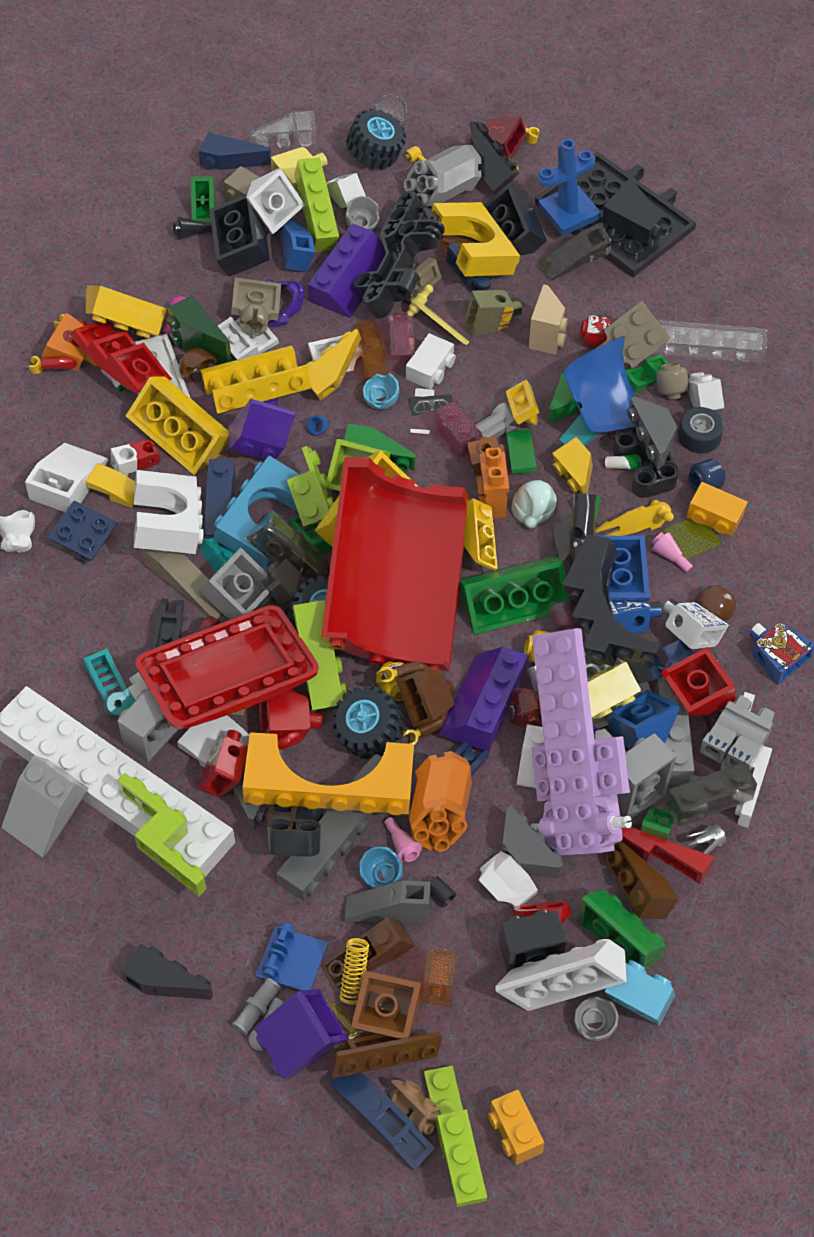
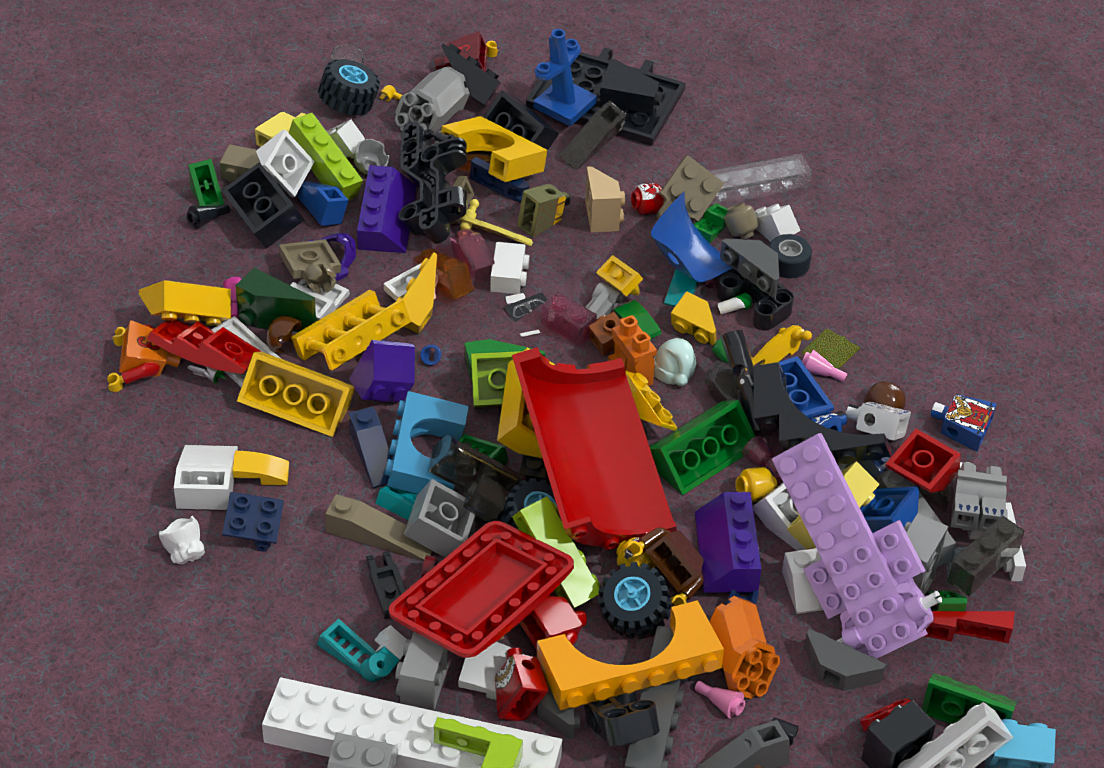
camera: 25 degrees left, 10 degrees down
(134, 457) = (266, 435): leg -> none
(168, 532) = (350, 476): white arch -> none
(230, 153) = (209, 137): dark blue slope -> none
(299, 123) = (266, 94): clear slope -> none
(310, 491) = (467, 415): lime bracket -> none
(379, 387) = (475, 302): medium azure hair -> none
(380, 859) = (722, 723): dark azure hair -> none
(507, 880) = (839, 697): white slope -> none
(525, 708) = (773, 541): clear red head -> none
(563, 402) = (653, 265): green slope -> none
(642, 884) = (960, 657): reddish brown slope -> none
(707, 471) = (817, 293): dark blue head -> none
(711, 834) = (998, 596): flat silver piece -> none
(716, 509) = (842, 318): light orange brick -> none

